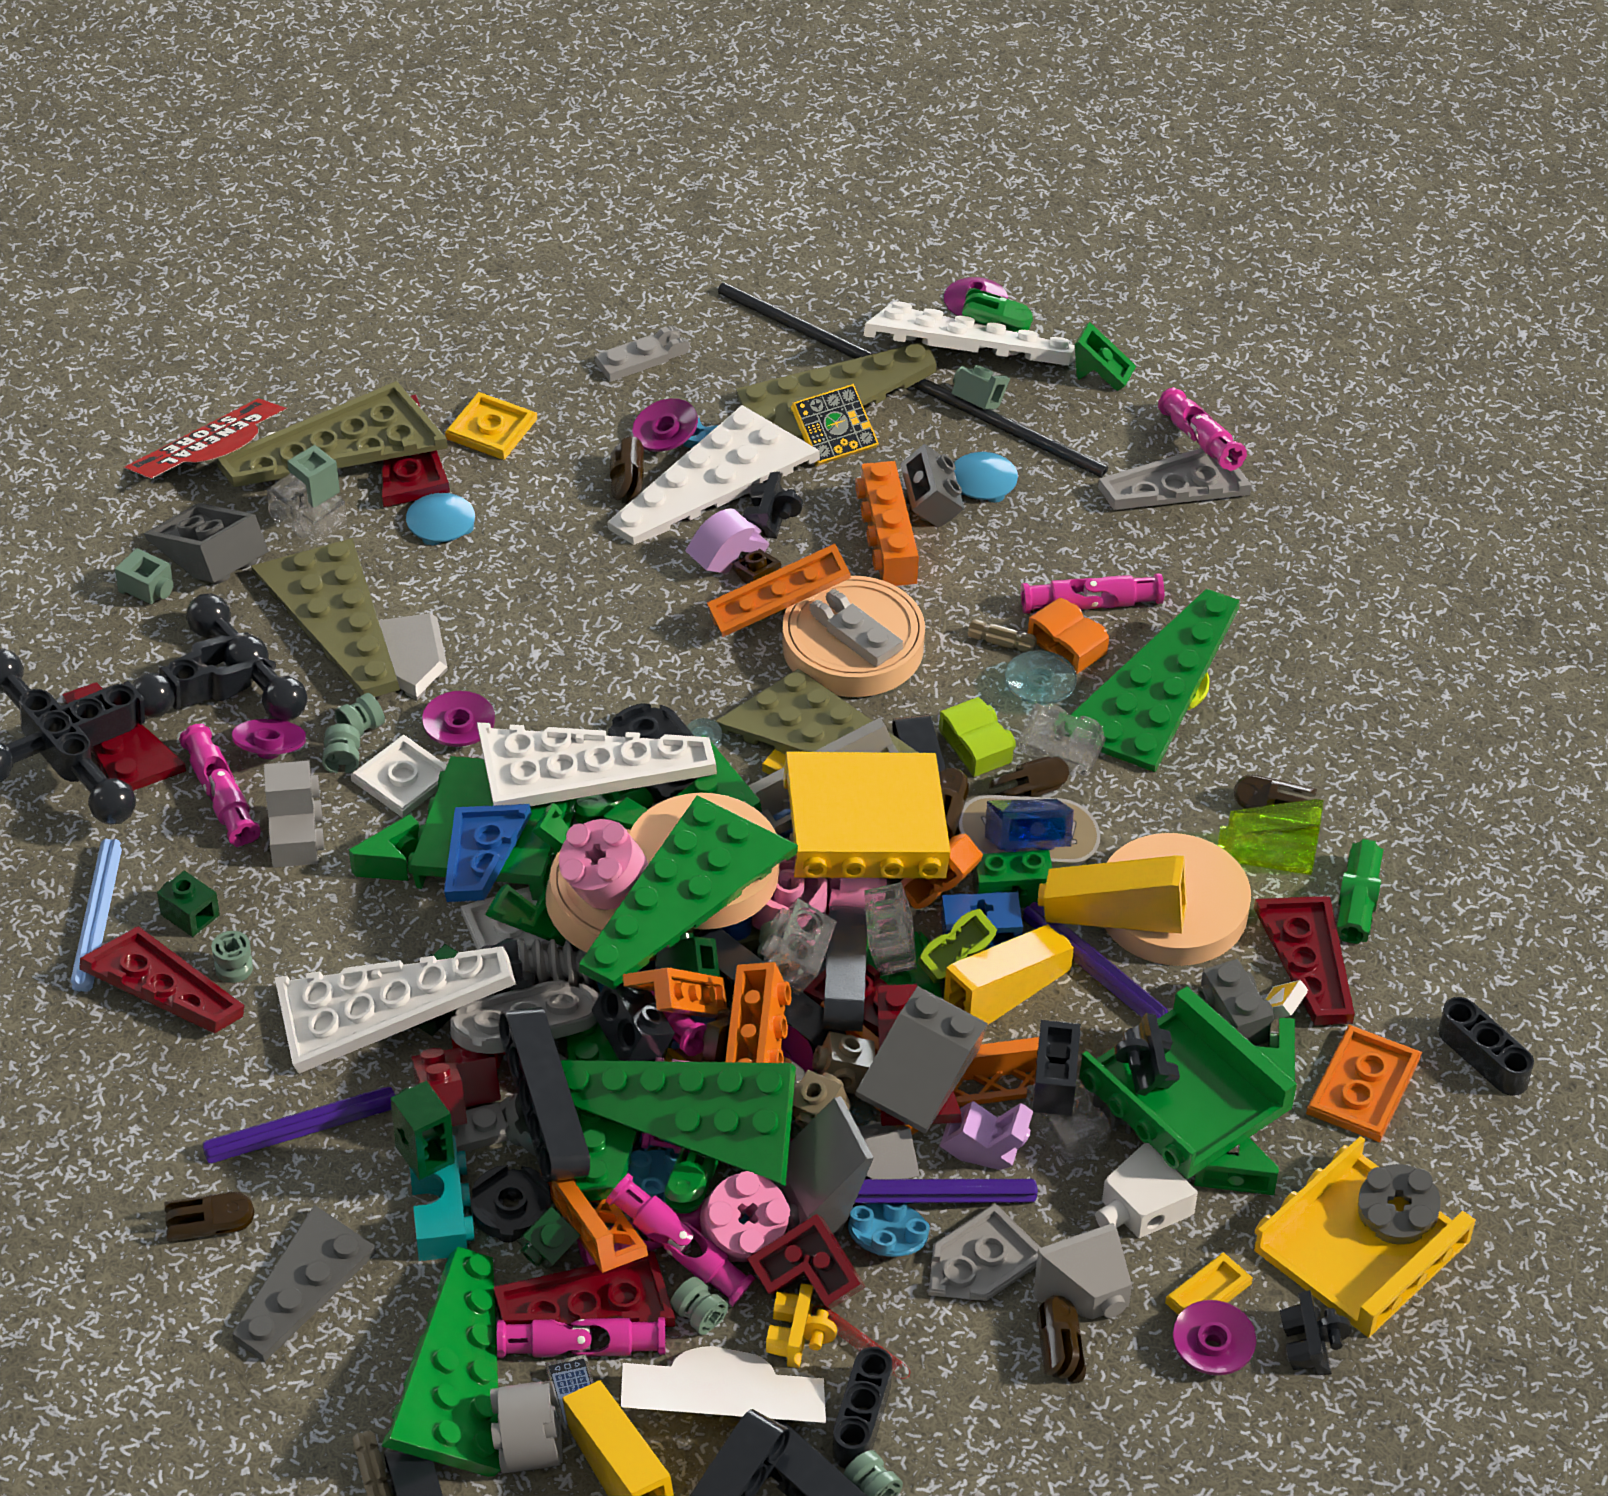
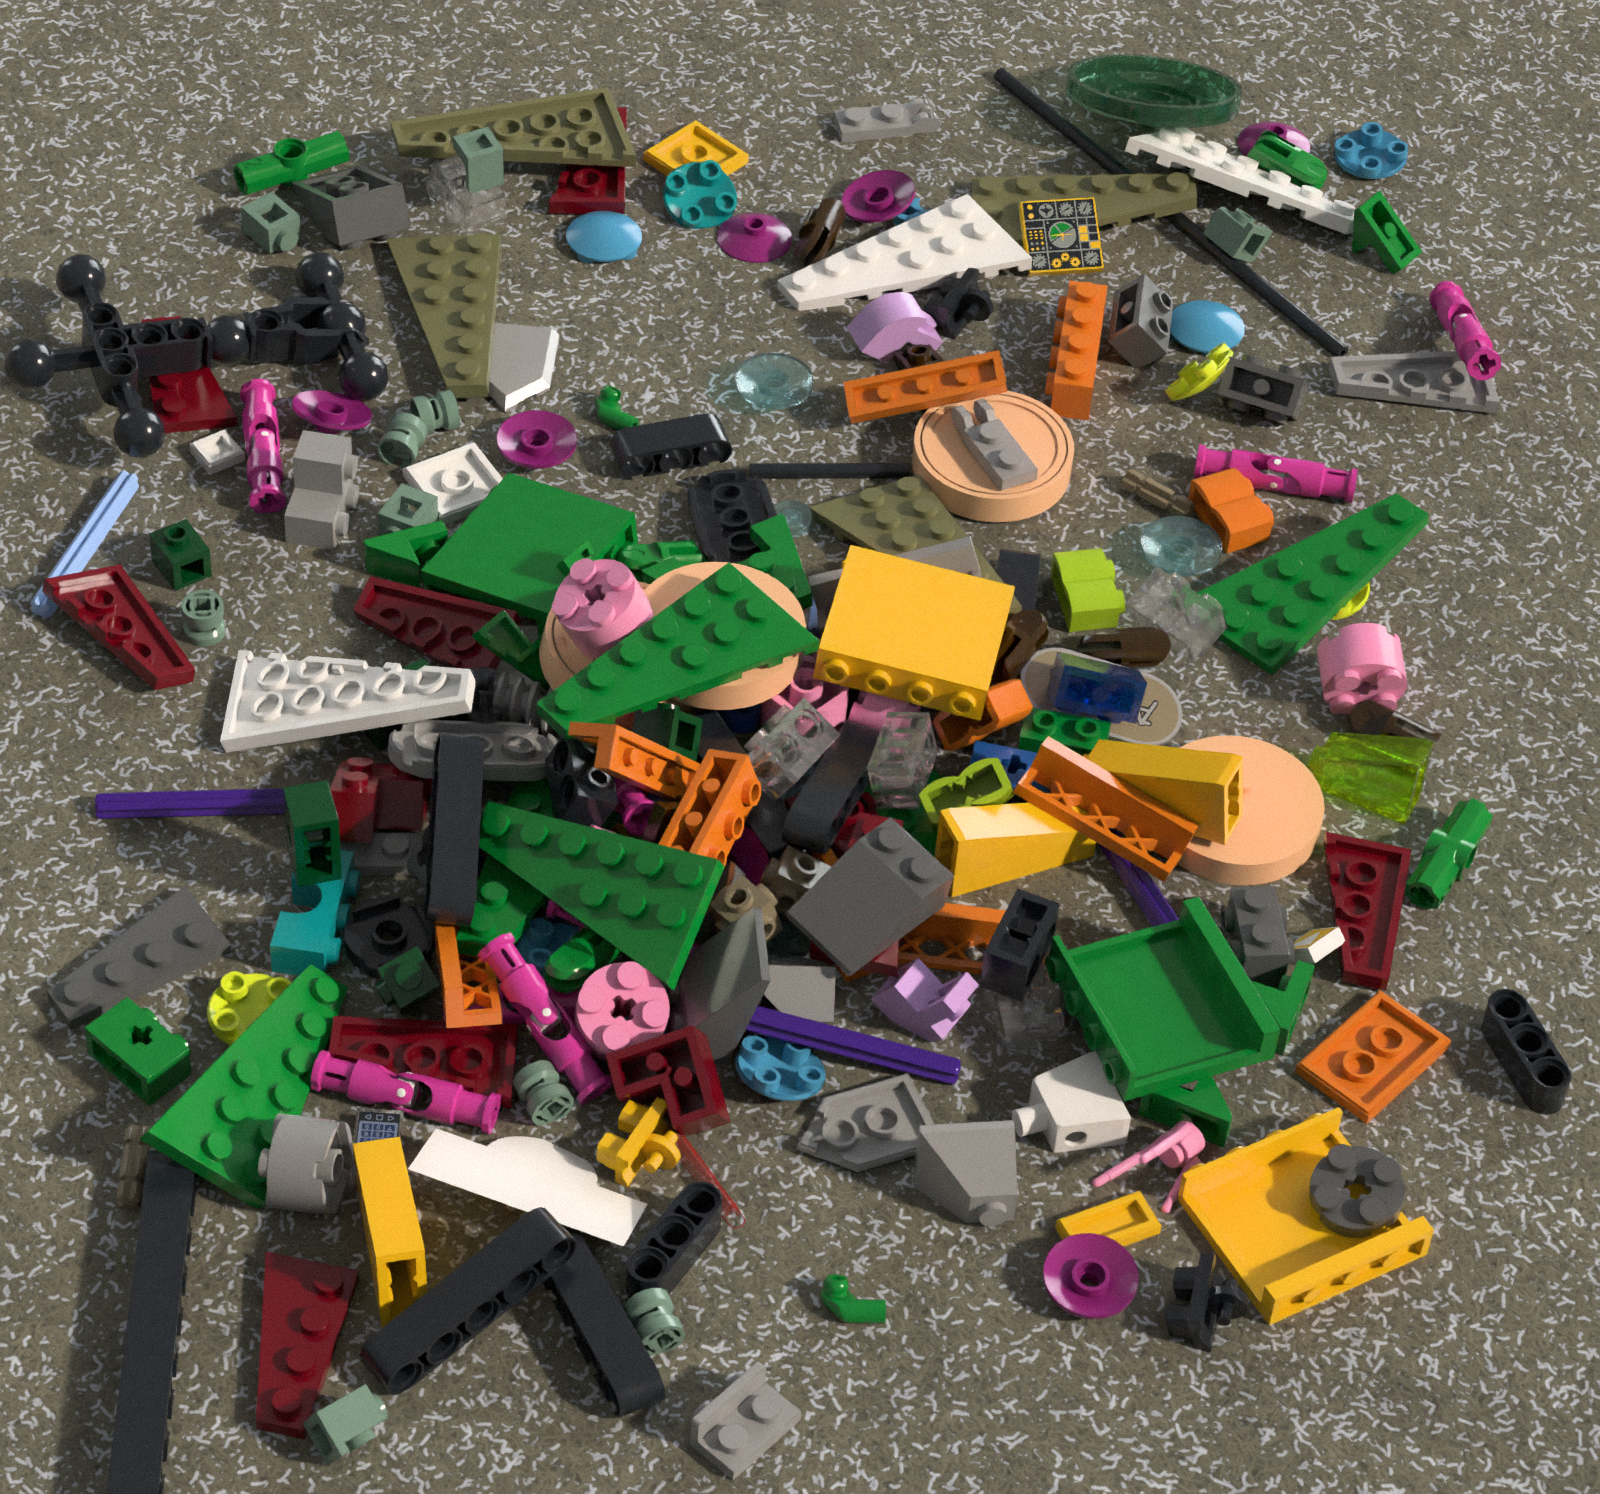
camera: 15 degrees right, 0 degrees up
(138, 515) = (290, 162): none -> green piece
(179, 800) = (217, 452): none -> white tile
(207, 1215) = (70, 868): dark brown arm -> none
(209, 441) = (394, 106): red sticker -> none
(336, 1365) = (138, 1050): none -> green brick
(369, 822) = (397, 514): none -> sand green brick
(408, 1298) = (240, 1002): none -> neon yellow dish
(423, 911) = (430, 622): none -> dark red wing
(480, 847) = (495, 568): blue wing -> none
(510, 460) = (699, 195): none -> teal dish
(510, 678) = (610, 411): none -> green arm
(569, 487) = (754, 237): none -> magenta dish
(576, 694) = (670, 445): none -> black beam
(584, 762) = (635, 508): white wing -> none
(642, 614) = (774, 381): none -> clear light blue dish
(718, 683) = (829, 470): none -> black bar
(864, 275) = (1153, 91): none -> clear green container
(1000, 521) = (1196, 377): none -> neon yellow dish
(1024, 1421) = (847, 1306): none -> green arm
(1056, 520) = (1275, 392): none -> dark grey brick
(1060, 287) = (1370, 152): none -> dark azure dish
(1061, 1340) = (920, 1232): dark brown arm -> none
(1076, 923) = (1110, 804): none -> orange fence
(1145, 1053) = (1120, 956): black hips -> none
(1232, 748) = (1361, 667): none -> bright pink brick
(1238, 1208) = (1175, 1149): none -> bright pink plant

